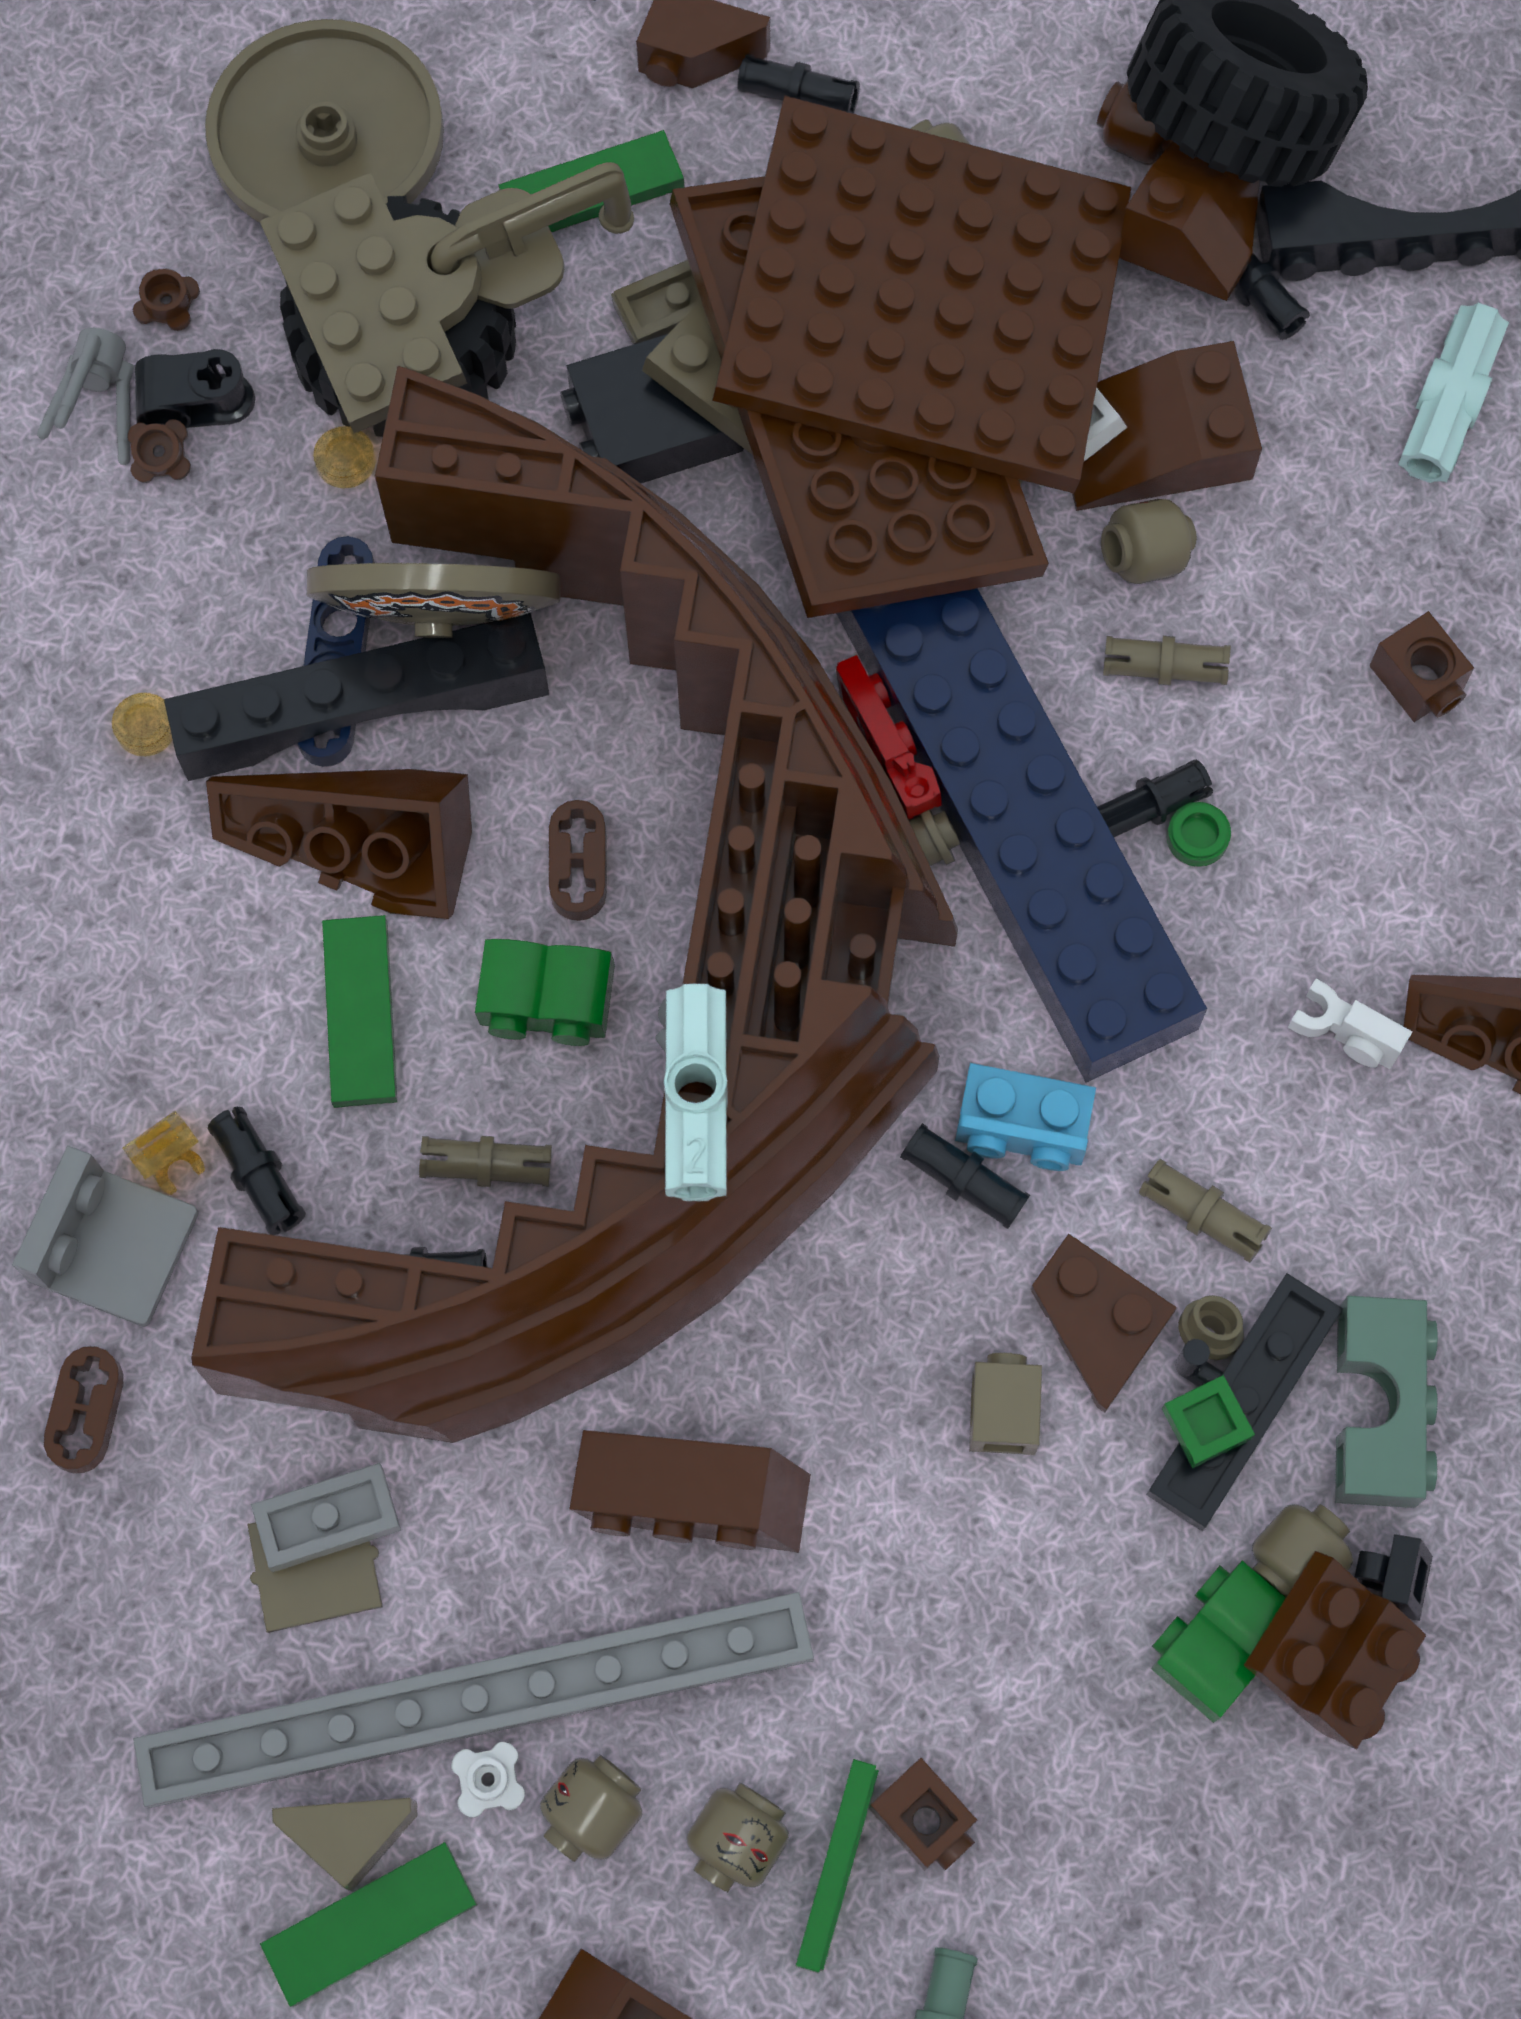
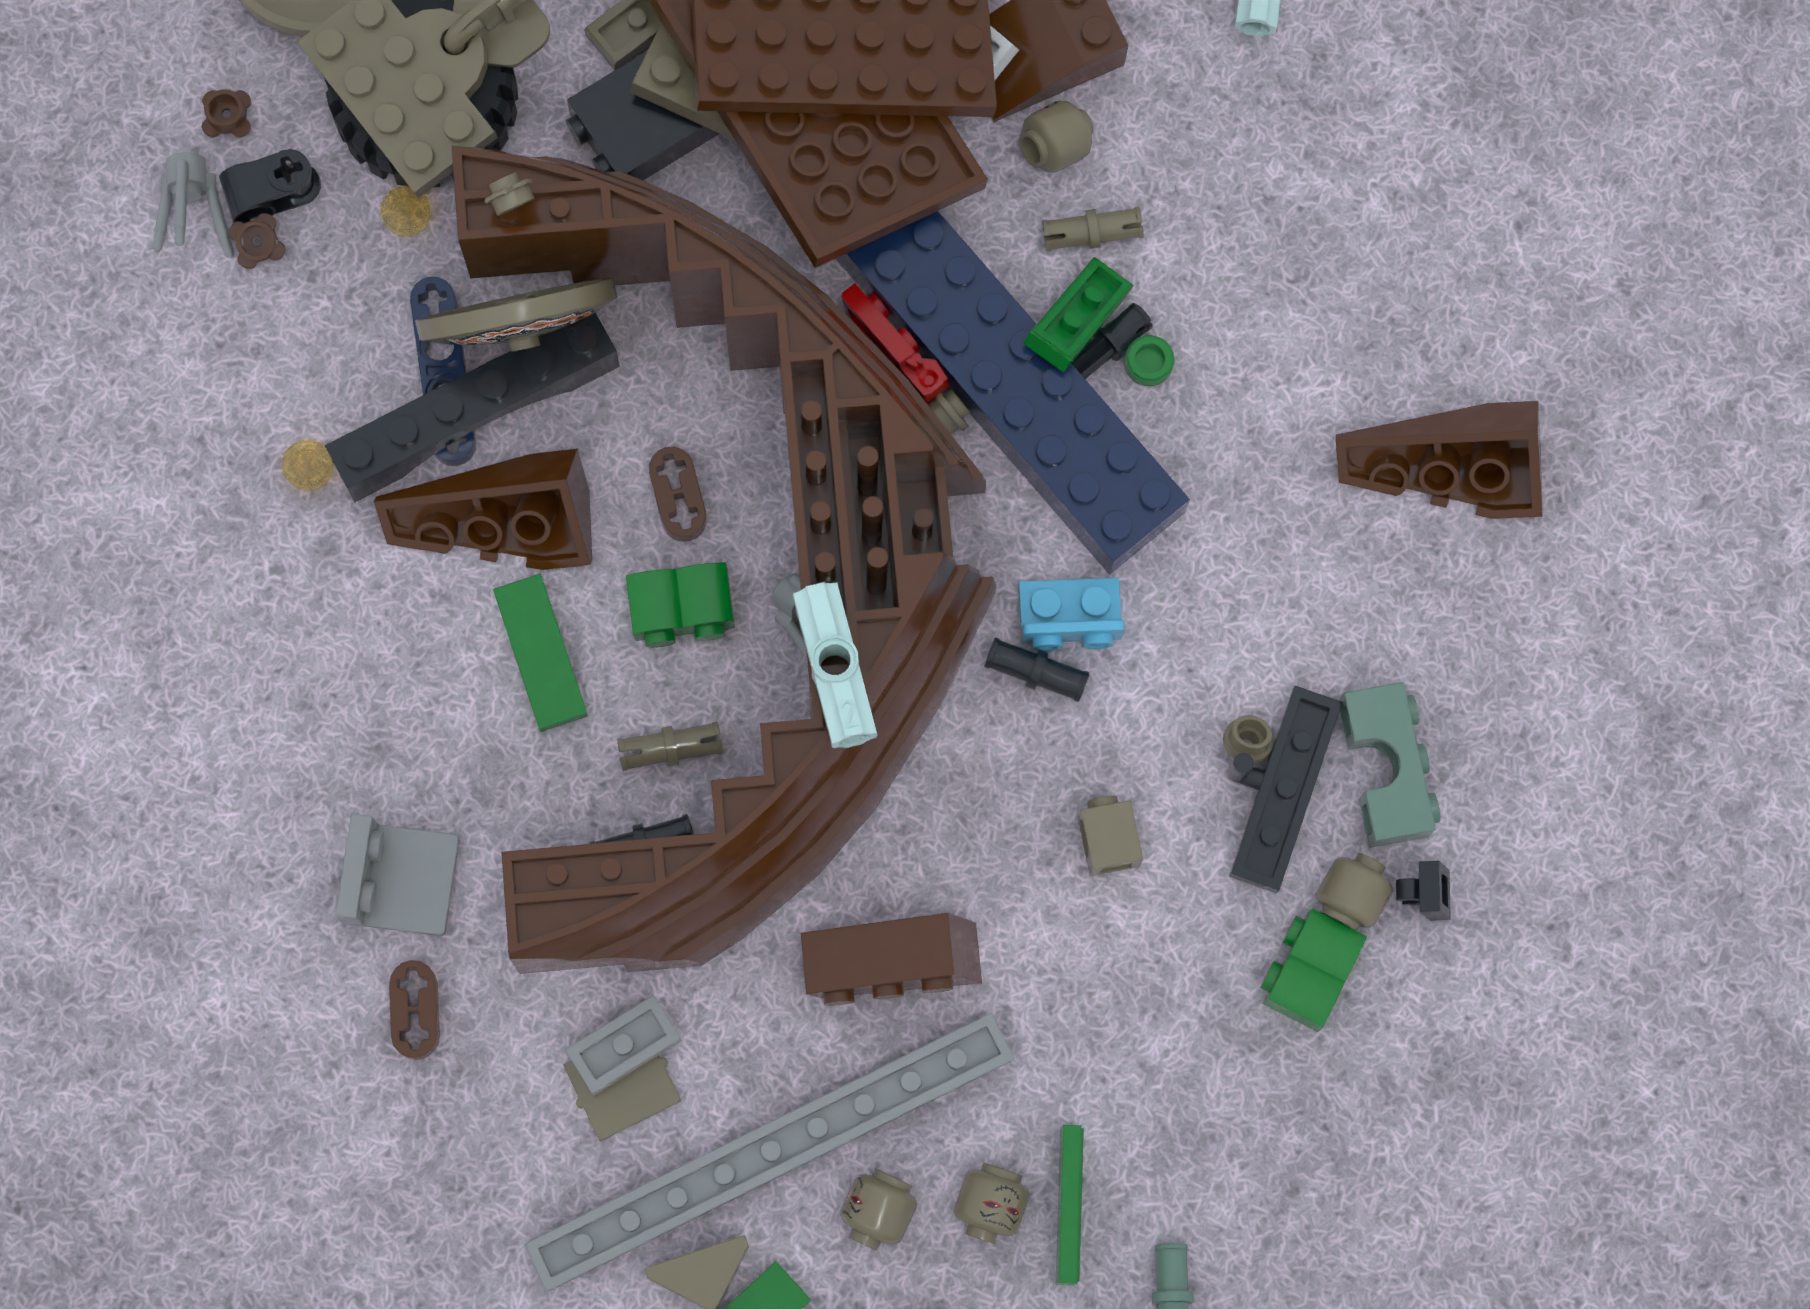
camera: 20 degrees left, 5 degrees up
(160, 1147) = (418, 794): clear yellow tile -> none
(256, 1170) = (495, 796): black pin -> none
(449, 432) = (509, 193): none -> dark tan plate
(504, 1790) = (781, 1204): white plate -> none
(924, 1789) = (1118, 1133): reddish brown brick -> none
(1100, 1316) = (1162, 751): reddish brown wing -> none
(1122, 754) = (1078, 314): none -> green tile
(1205, 1210) = (1222, 652): dark tan pin -> none
(1208, 1421) = (1263, 812): green plate -> none
(1336, 1652) = (1396, 958): reddish brown plate -> none
(1366, 1033) = (1311, 487): white plate -> none
(1427, 645) = (1290, 170): reddish brown brick -> none

